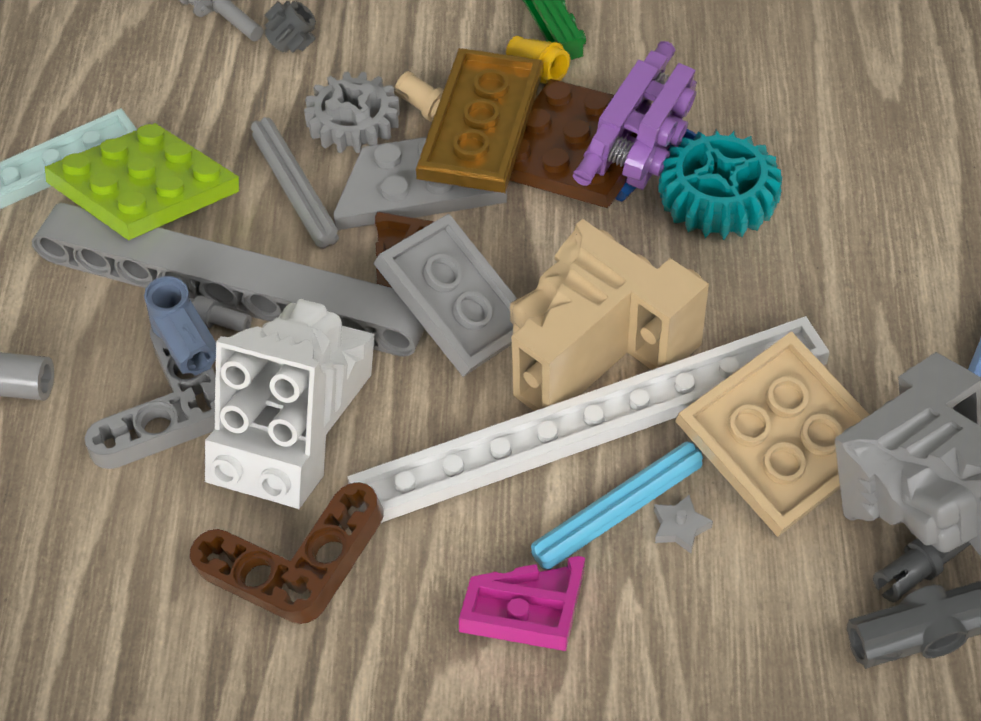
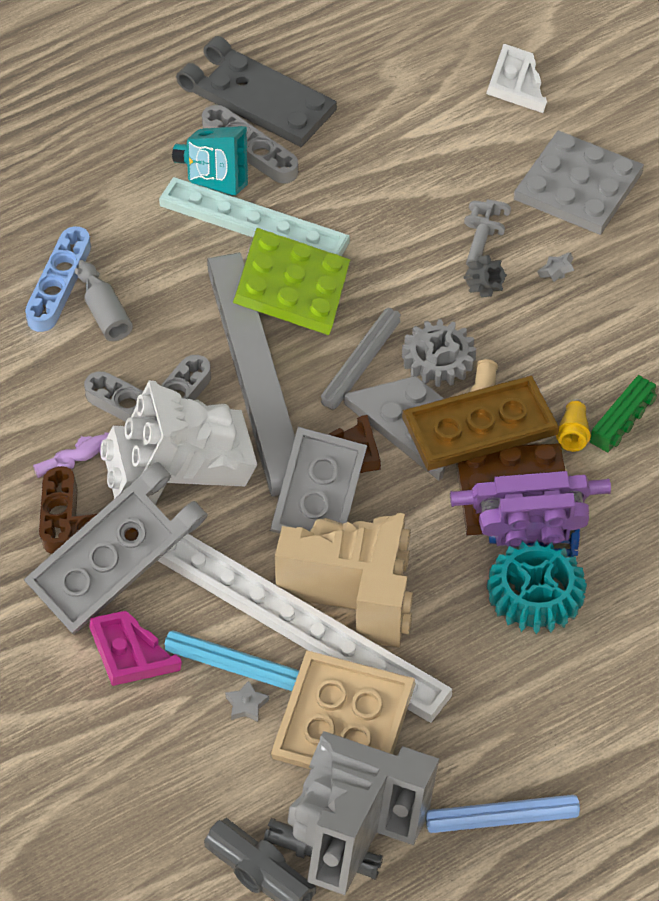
camera: 55 degrees right, 0 degrees up
(179, 325) = (190, 366): sand blue piece -> none
(186, 505) = (85, 449): none -> lavender animal
(213, 313) = (225, 375): light grey bar -> none
(388, 562) = (100, 560): none -> light grey hinge

